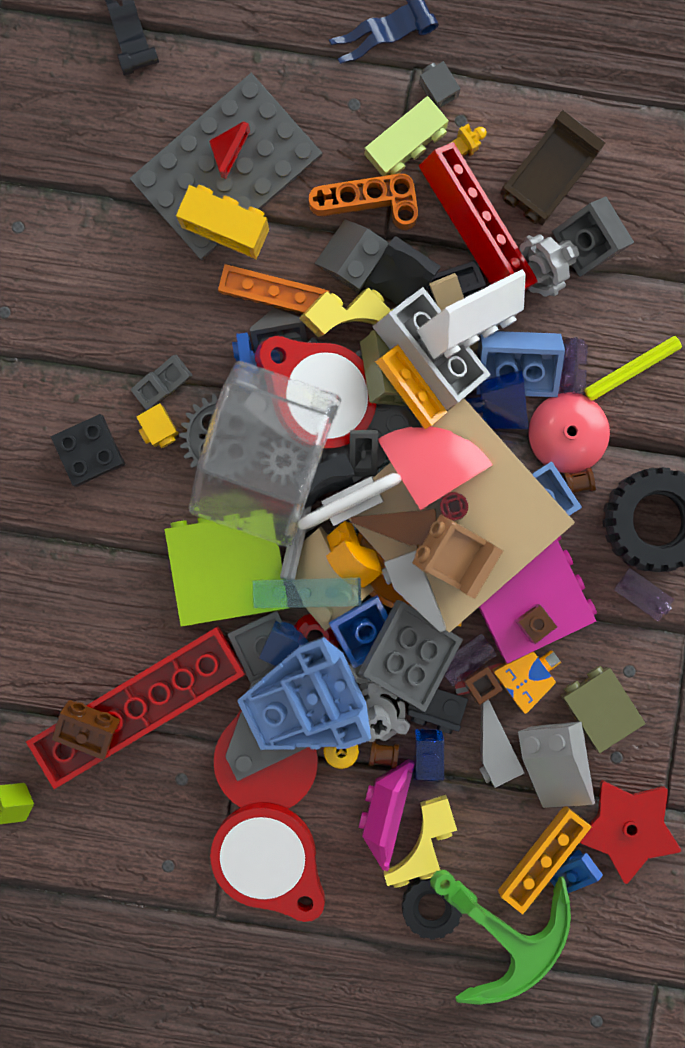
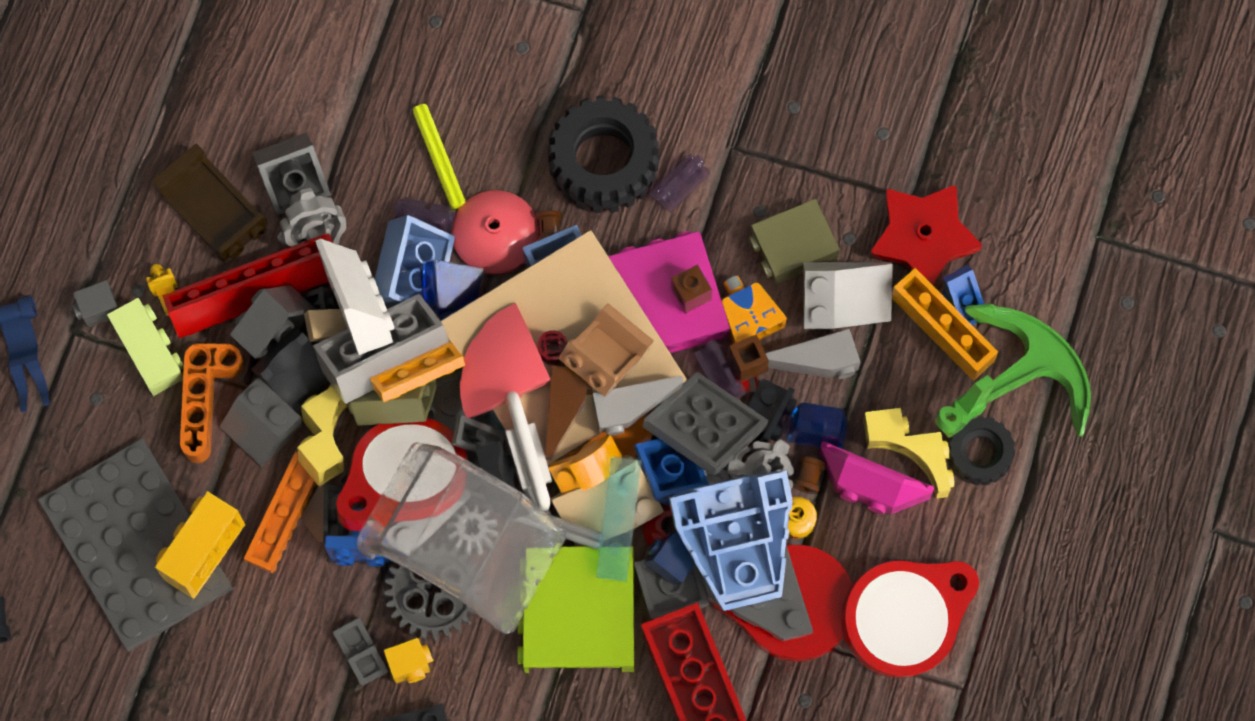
camera: 80 degrees left, 15 degrees down
(228, 146) = (117, 534): red slope -> none
(444, 244) = (270, 319): none -> dark grey brick

